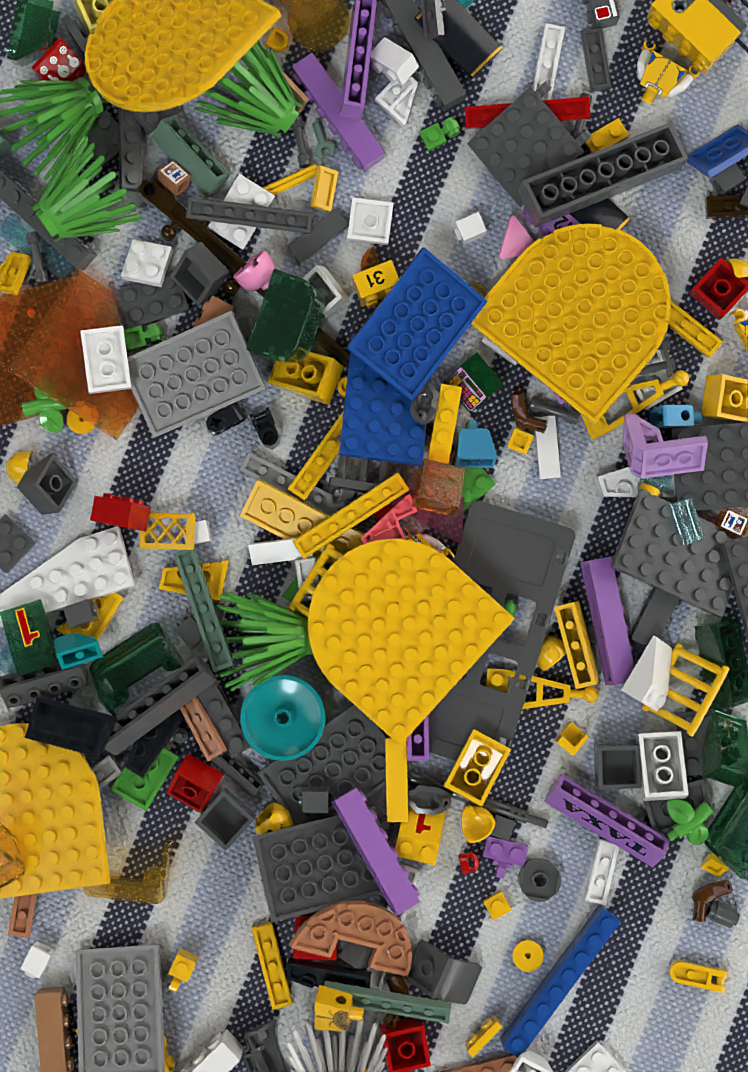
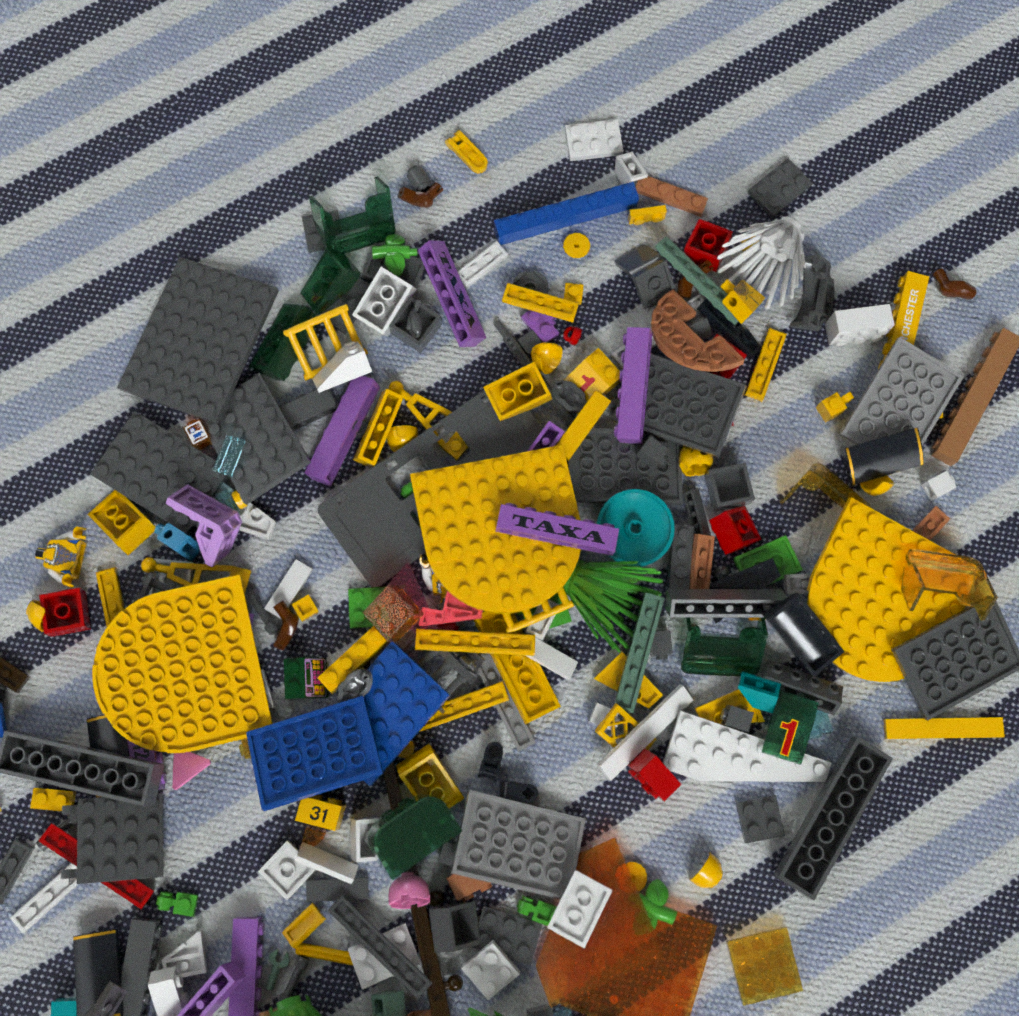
camera: 150 degrees left, 10 degrees down
(47, 485) = (696, 840): dark grey slope -> none
(98, 921) = (877, 486): none -> yellow helmet
(105, 951) = (883, 456): none -> black slope
(151, 545) = (644, 732): none -> white tile
(342, 249) = (326, 863): none -> white tile
(347, 660) = (557, 529): none -> medium lavender brick
(469, 229) = (215, 804): white brick -> none
(474, 447) = (343, 627): dark azure torso -> none
(519, 870) = (540, 302): none -> yellow plate
(571, 738) = (433, 367): yellow panel -> none
(618, 765) = (414, 322): none -> dark grey piece
(714, 865) = (400, 214): yellow plate -> none

